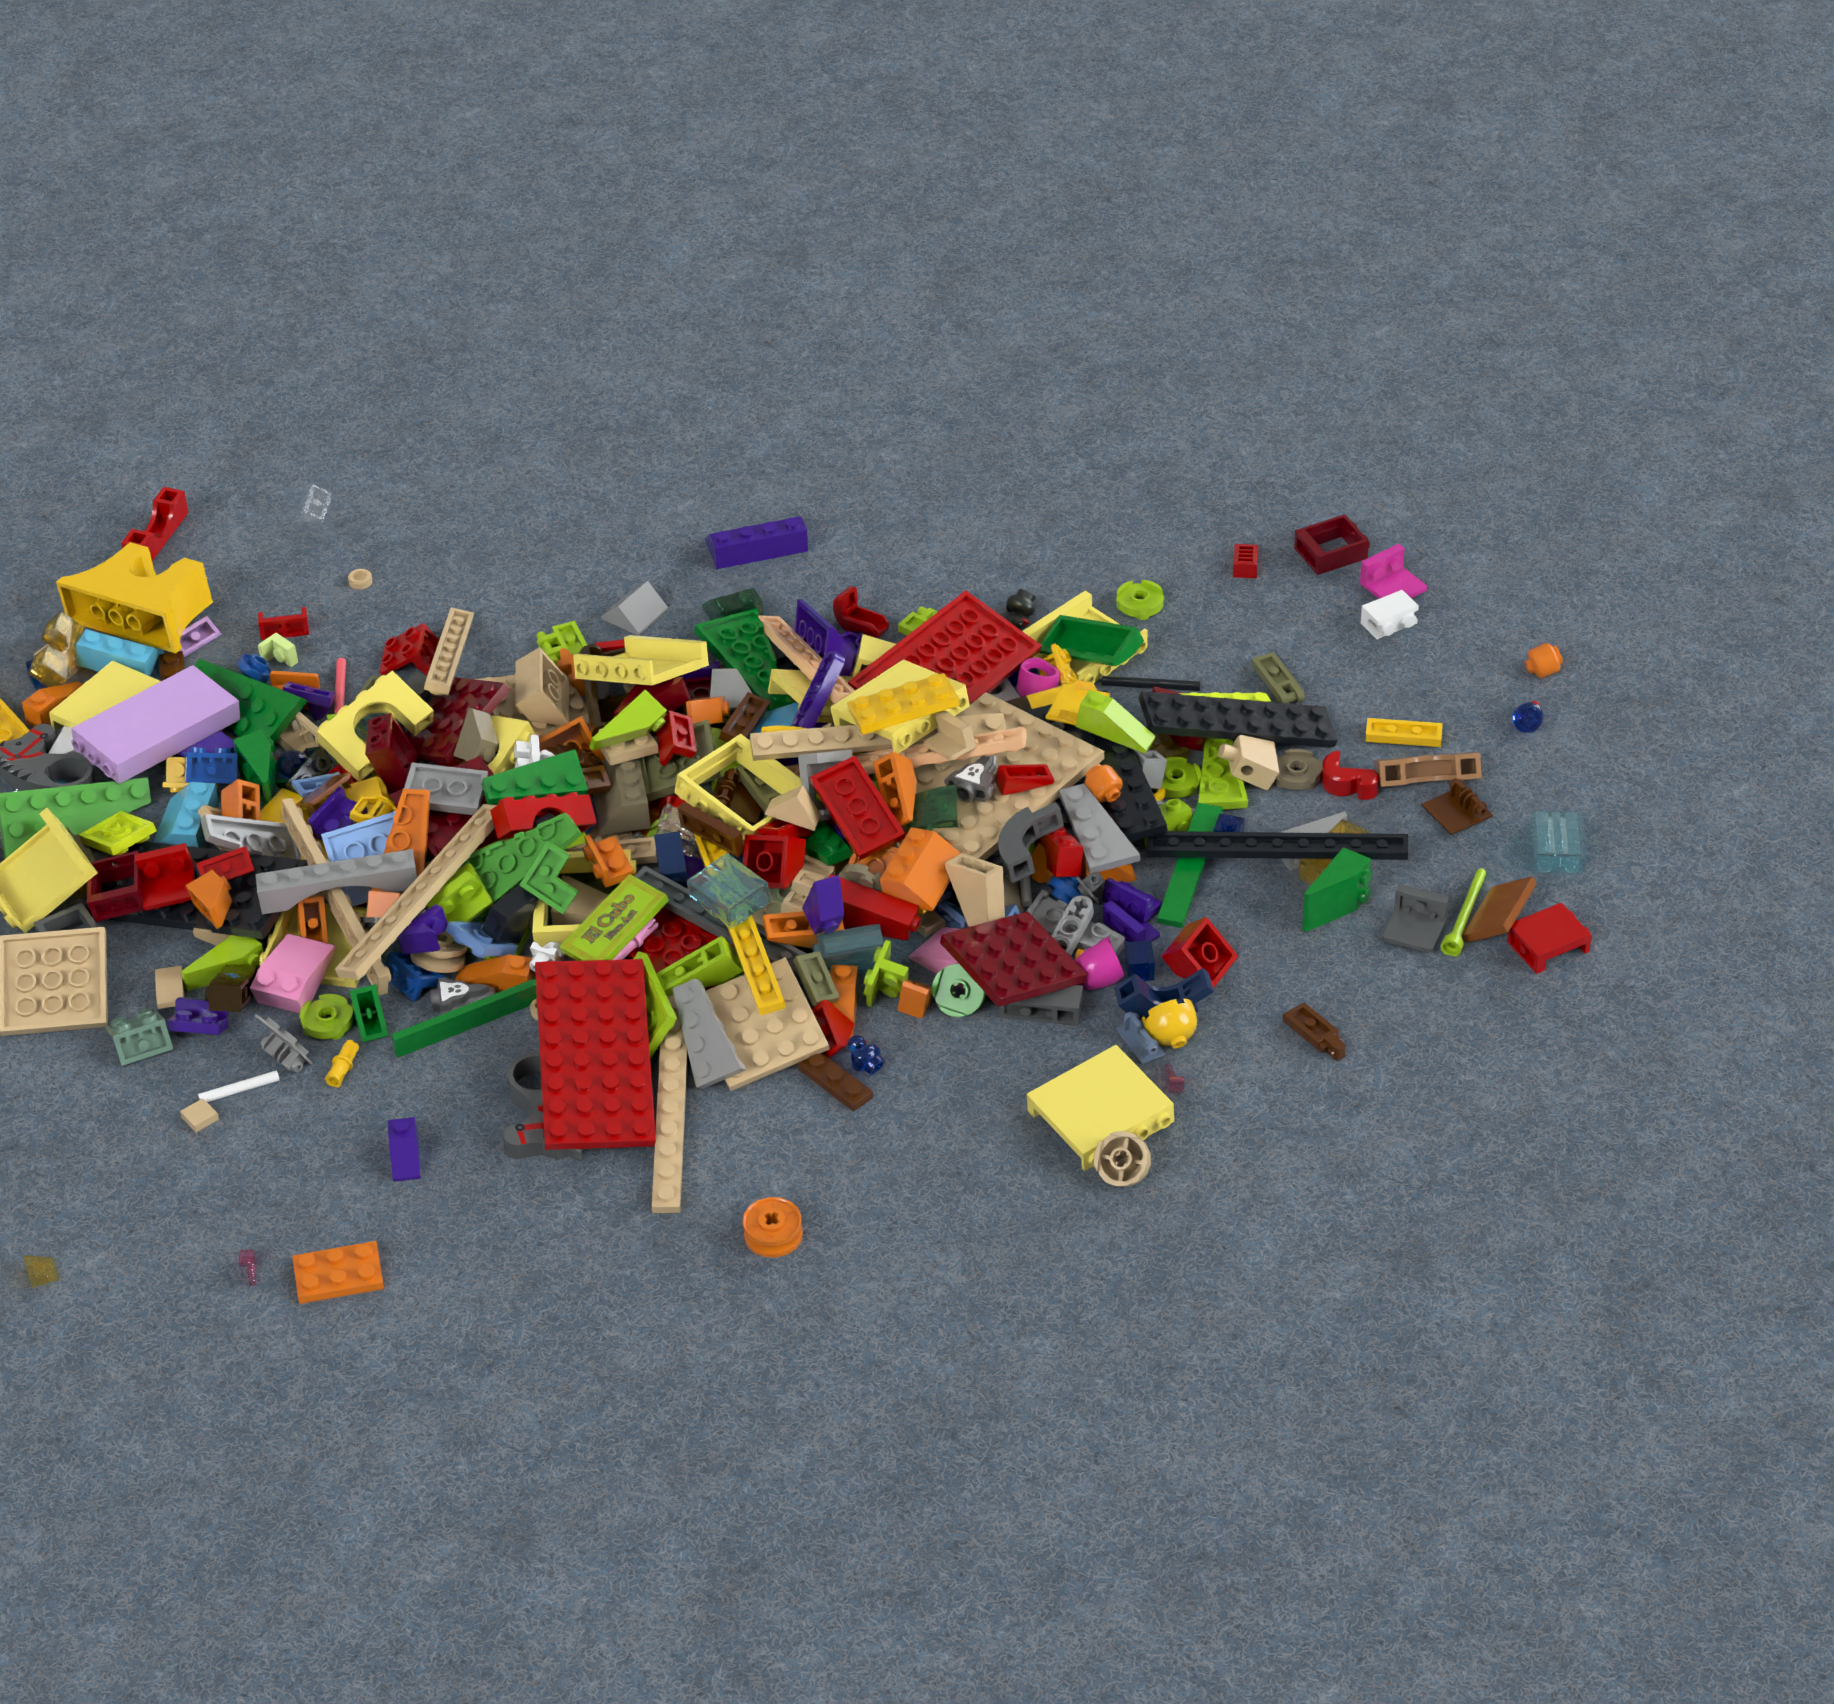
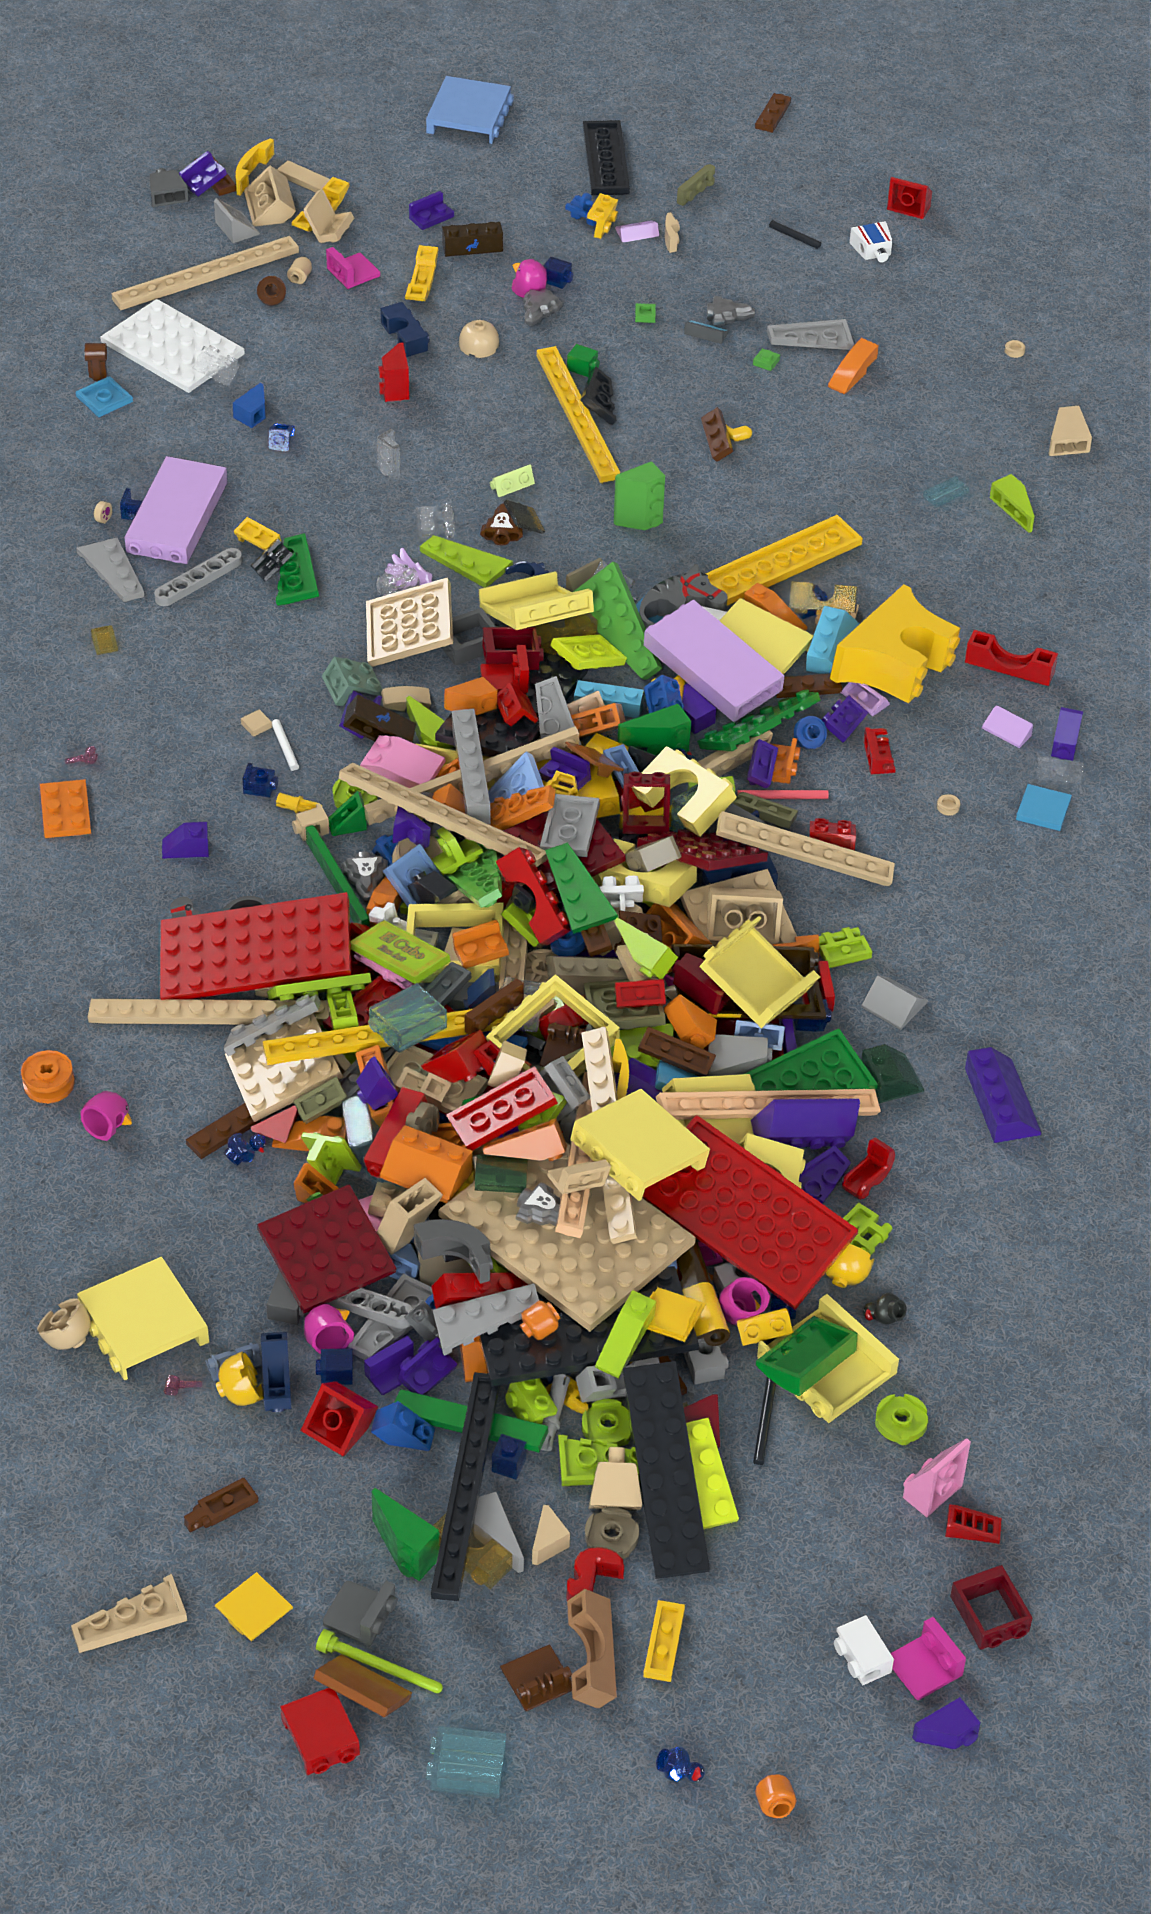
camera: 90 degrees right, 5 degrees up
(227, 649) = (845, 718): none -> dark purple bracket
(249, 537) = (1008, 726): none -> lavender slope
(276, 490) = (1067, 733): none -> dark purple slope
(280, 648) = (837, 749): yellowish green bracket -> none
(283, 1046) = (318, 761): light grey hinge -> none
(307, 1092) = (259, 781): none -> clear blue brick
(366, 516) = (1043, 807): none -> dark azure tile
(376, 1045) = (315, 817): none -> tan brick
(543, 880) = (451, 892): bright green plate -> none
(697, 683) = (771, 1031): none -> medium blue slope
(819, 690) = (664, 1084): dark purple beam -> none
(822, 1163) = (105, 1114): none -> dark pink piece
(903, 703) = (618, 1132): yellow plate -> none
(929, 933) = (382, 1196): none -> tan bracket
(1019, 778) = (544, 1230): red slope -> none
(1206, 905) = (402, 1427): none -> blue slope
(1213, 560) = (937, 1479): none -> bright pink slope
(1278, 678) = (760, 1532): olive plate -> none
(1308, 805) = (550, 1538): none -> tan slope
(1428, 994) = (253, 1607): none -> yellow piece
(1450, 566) = (948, 1726): none -> dark purple slope
(1452, 1077) = (144, 1613): none -> tan wing

